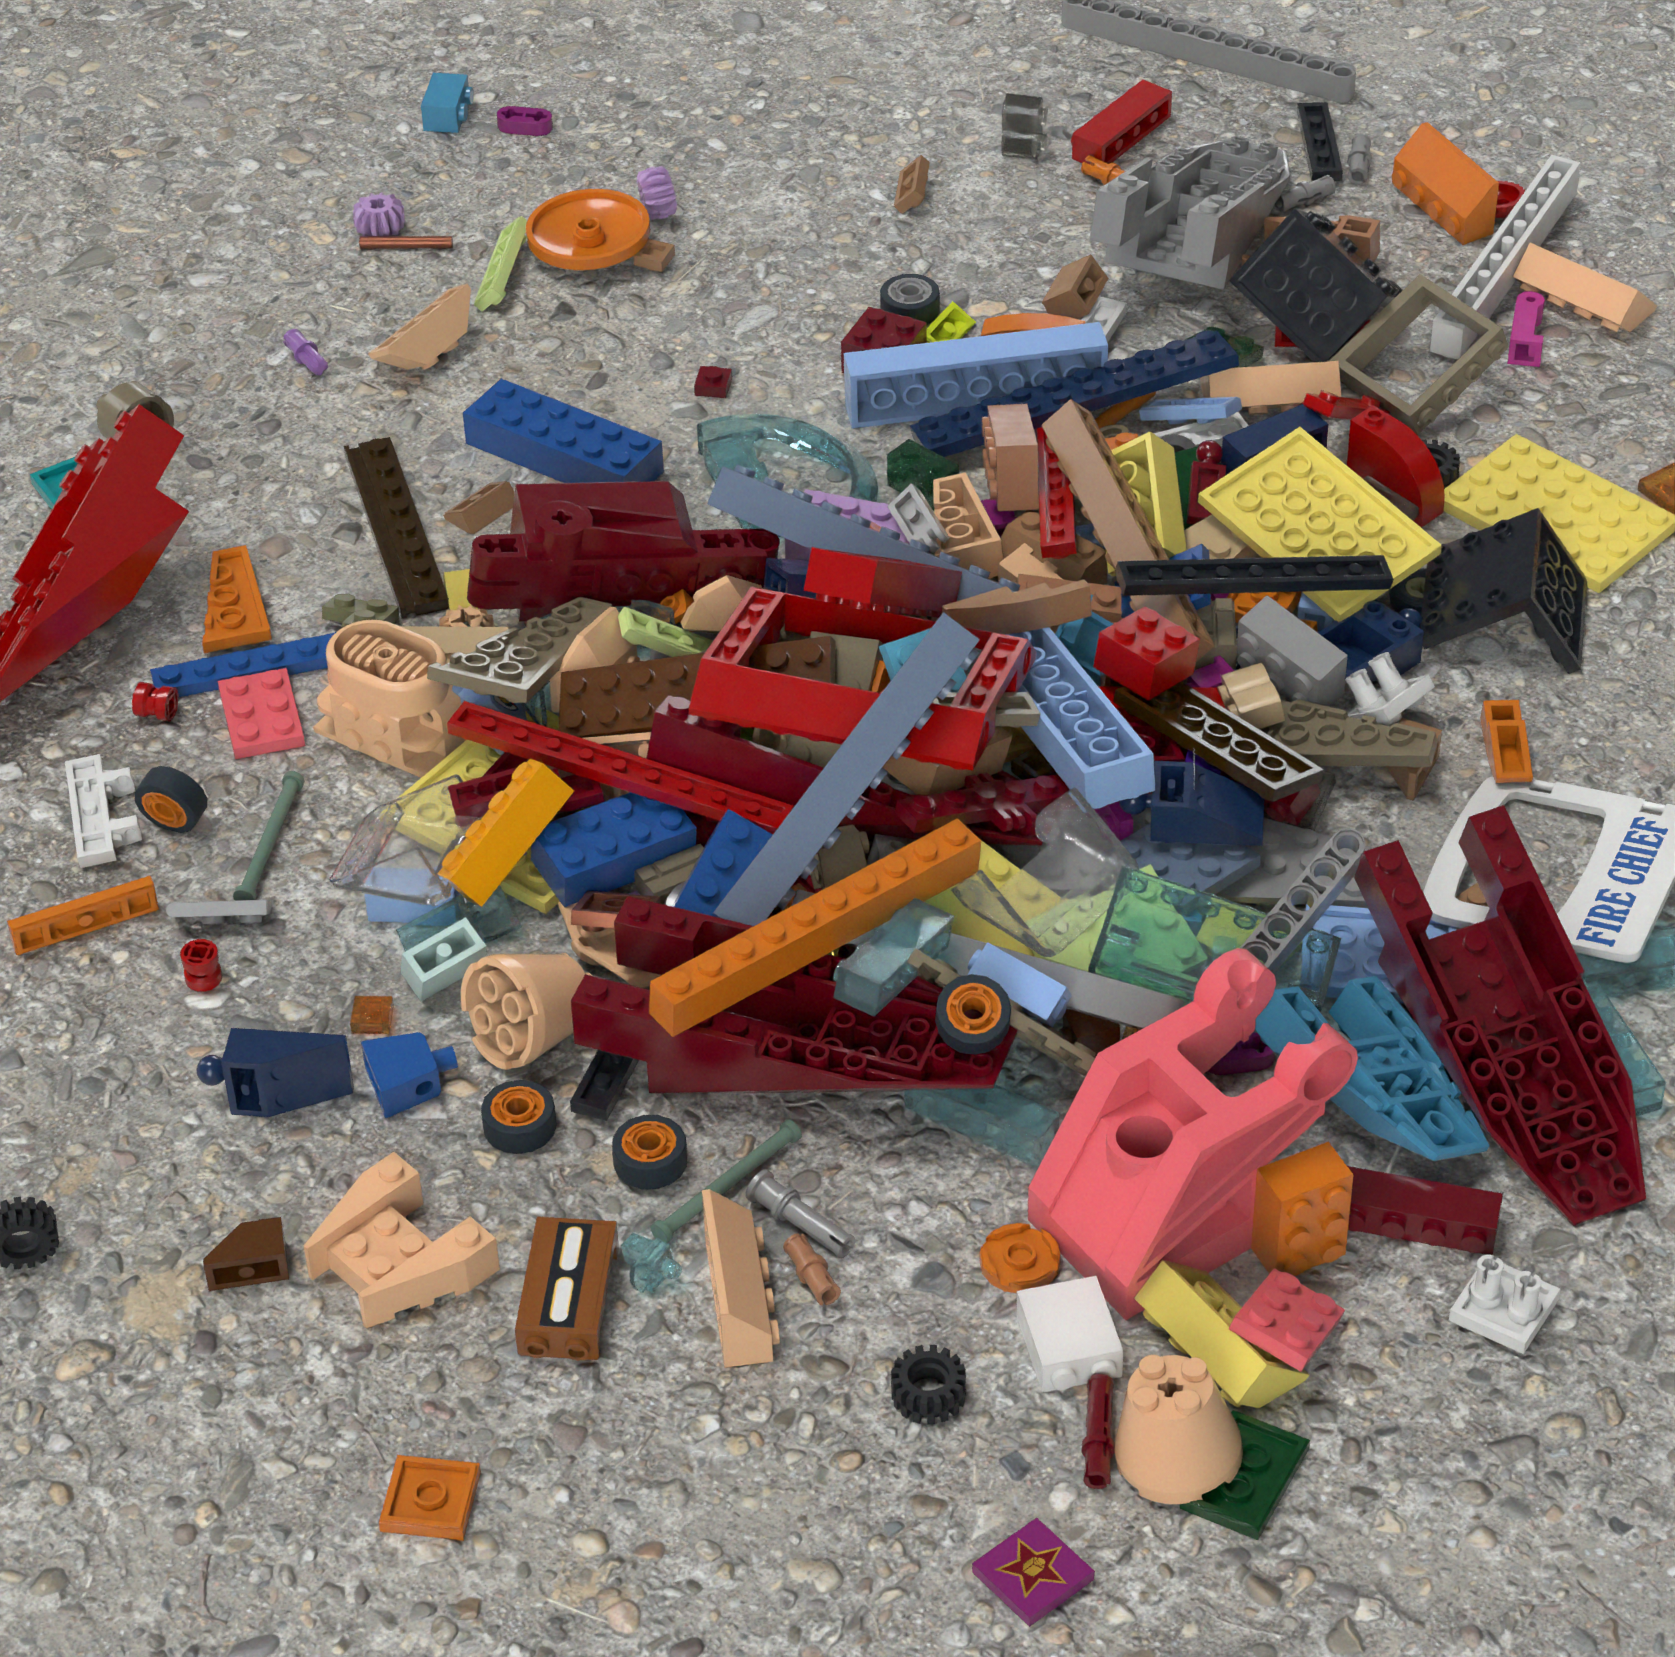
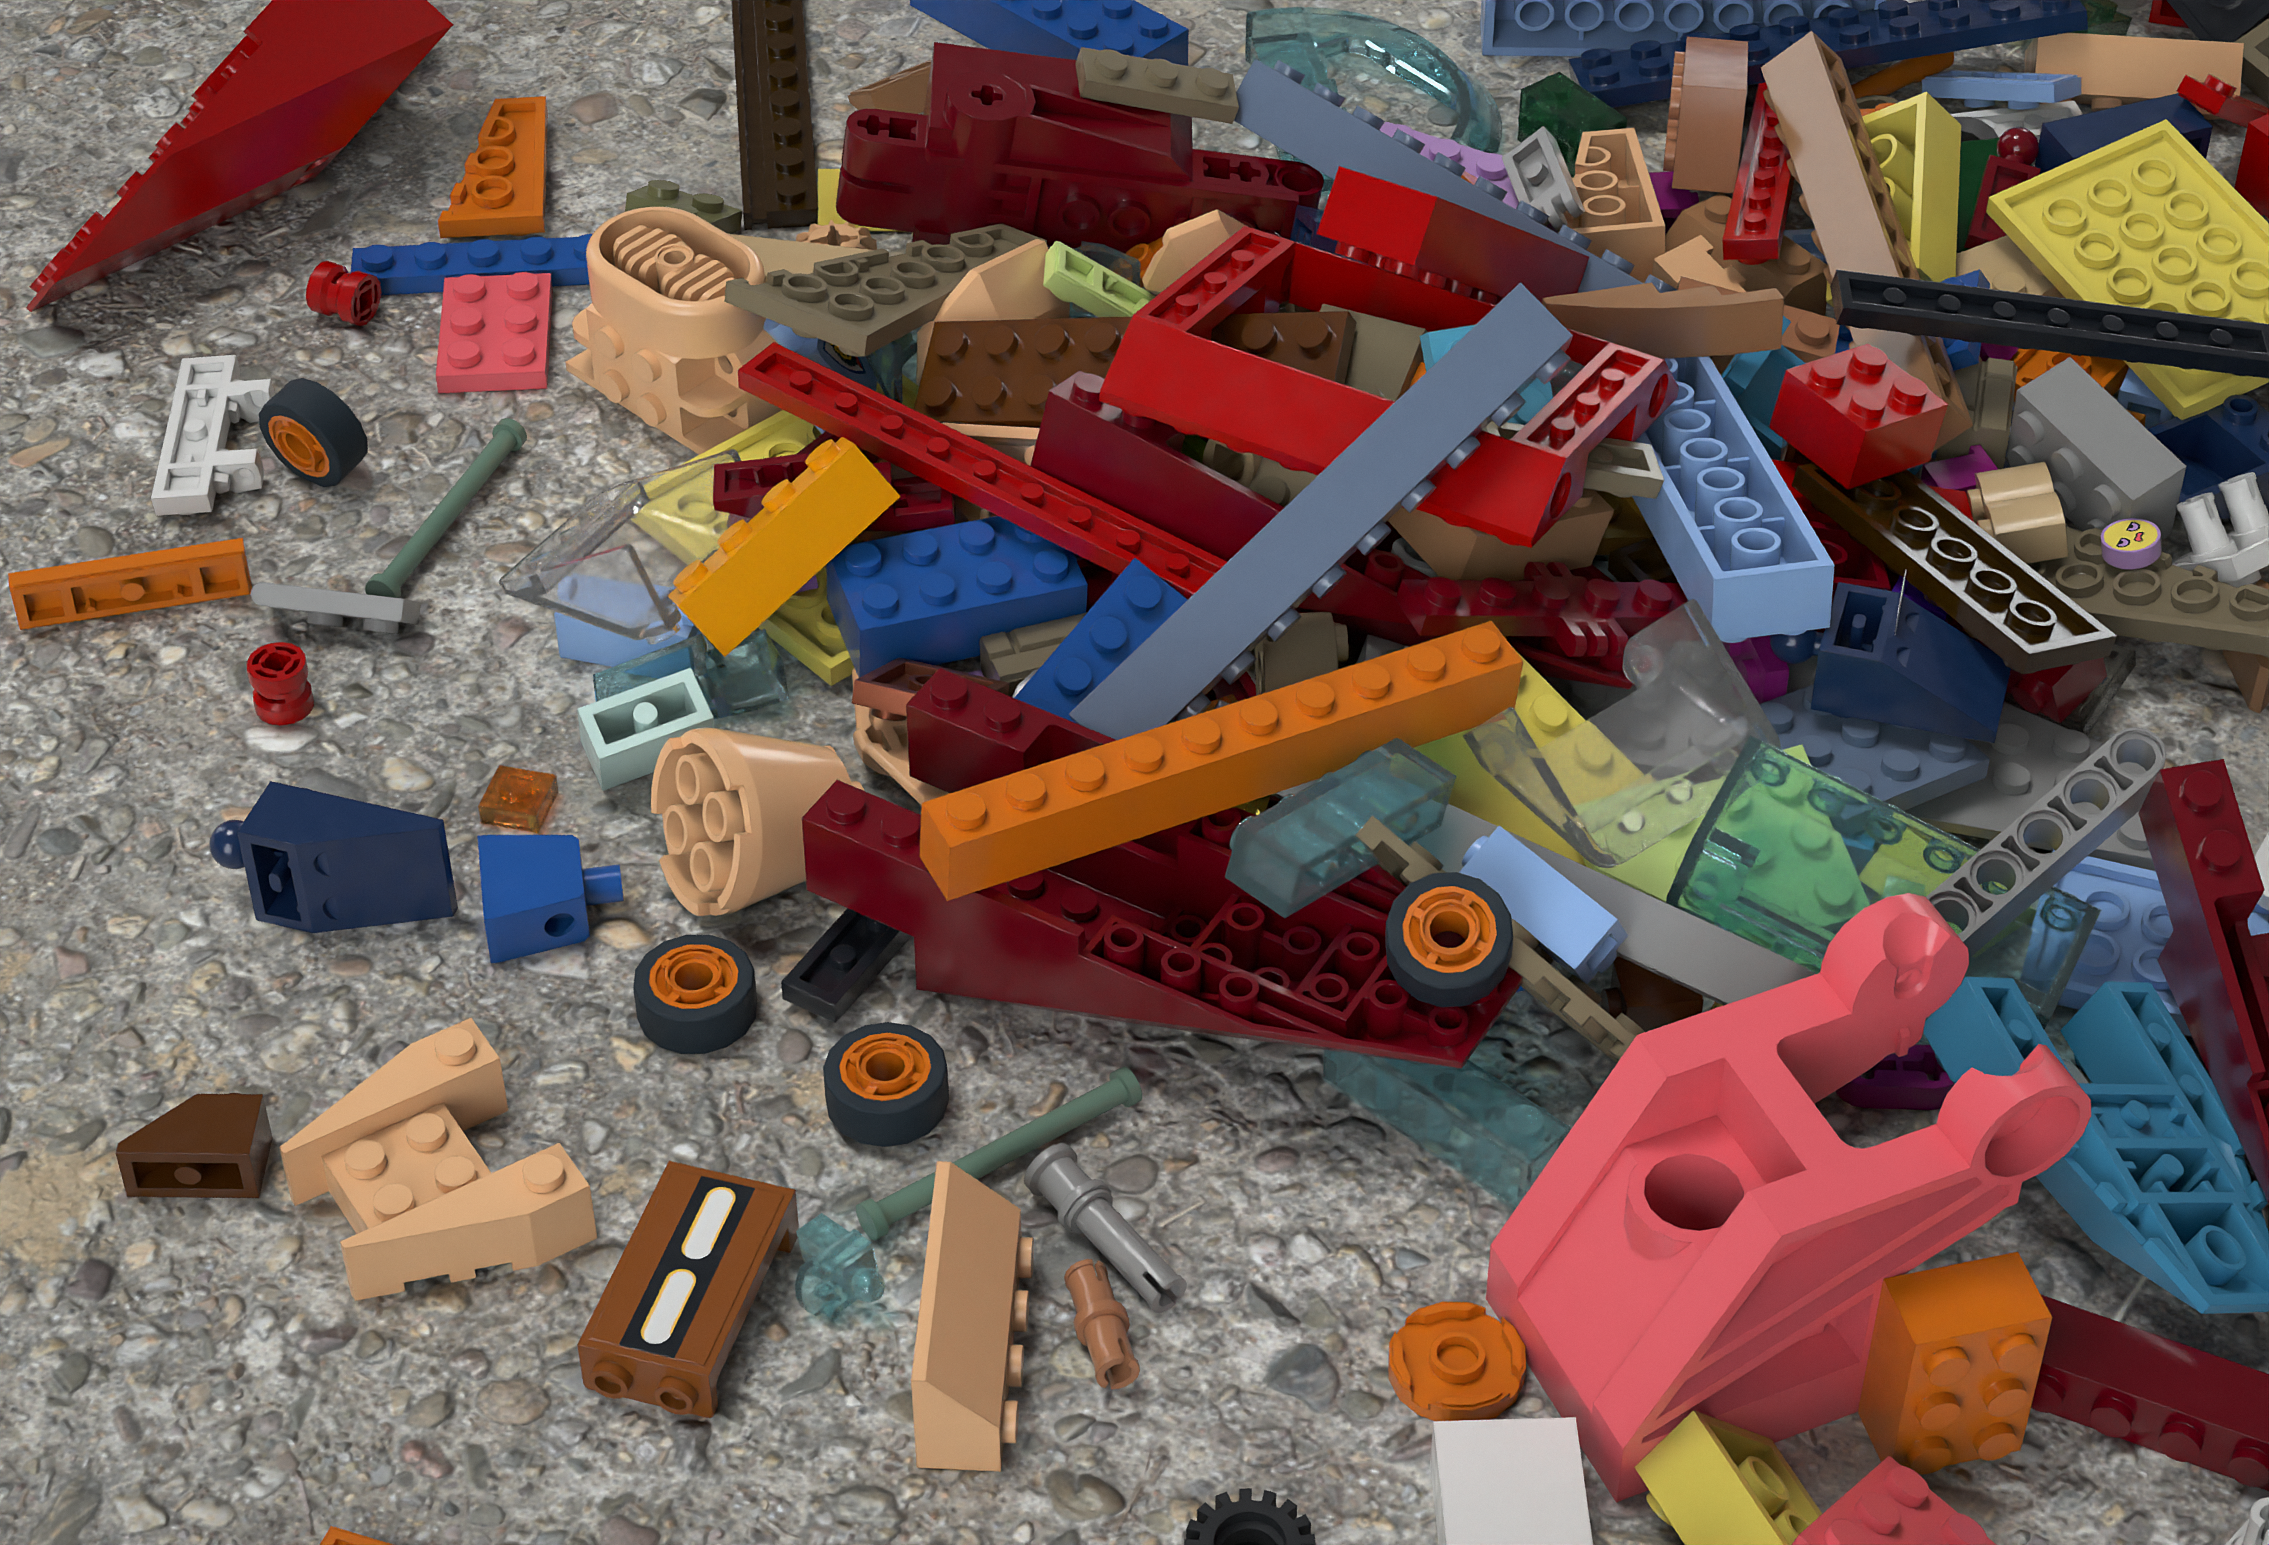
camera: 10 degrees right, 0 degrees up
(663, 492) = (1156, 85): none -> dark tan plate
(1321, 707) = (2131, 543): none -> tile

